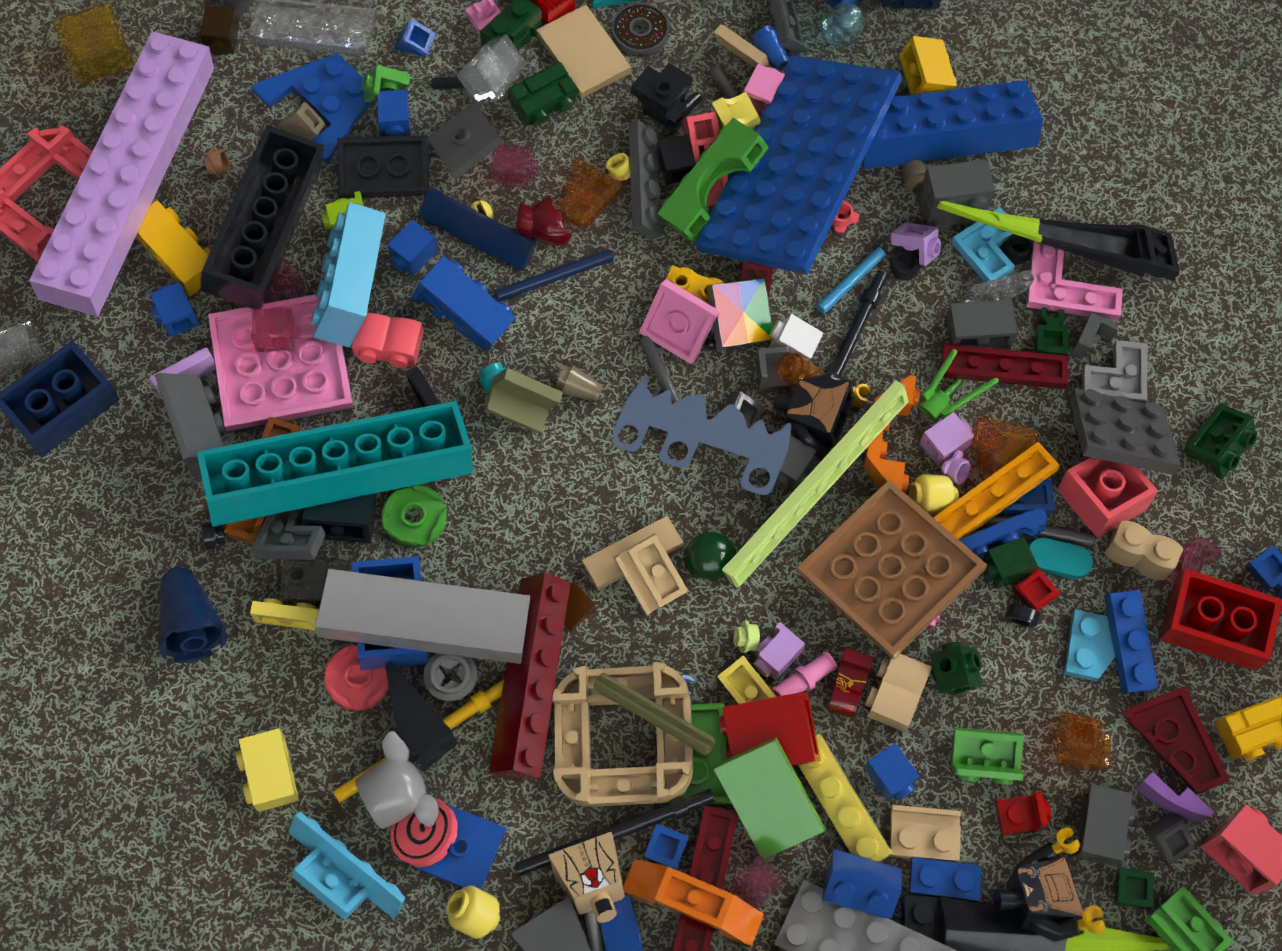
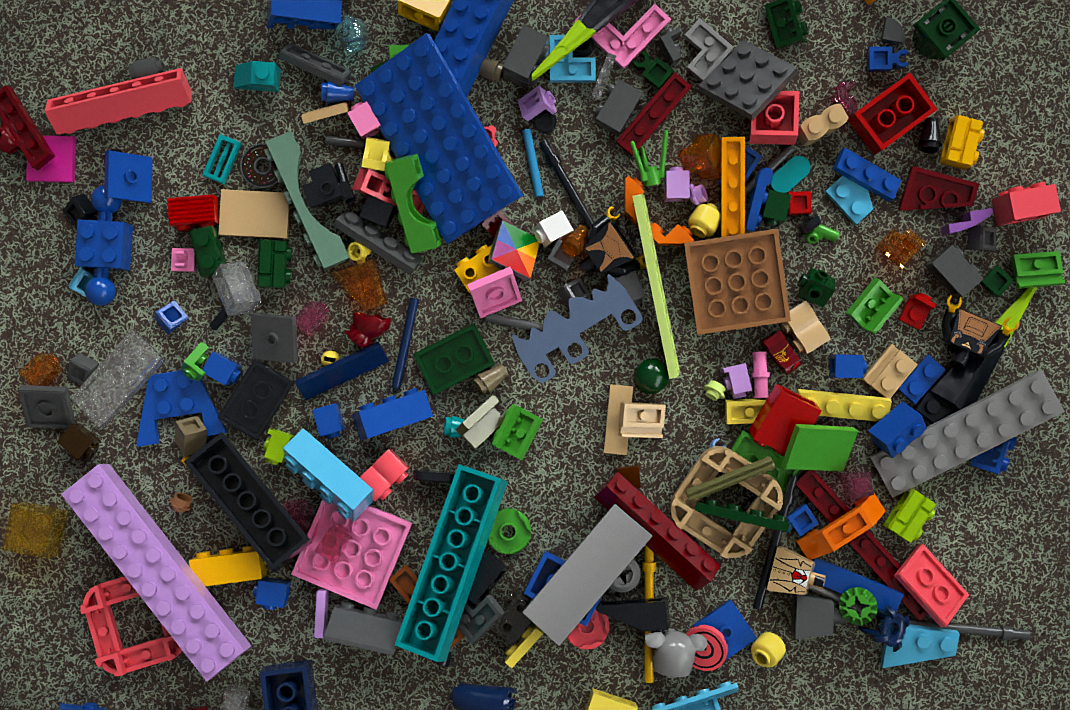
camera: 55 degrees left, 20 degrees up
(538, 446) = (516, 431): none -> bright green bracket
(573, 333) = (454, 359): none -> dark green plate
(626, 769) = (752, 517): none -> dark green plate
(665, 41) = (287, 158): none -> sand green arch
(1023, 637) = (821, 232): none -> bright green arm
(1233, 688) = (930, 137): none -> black cone

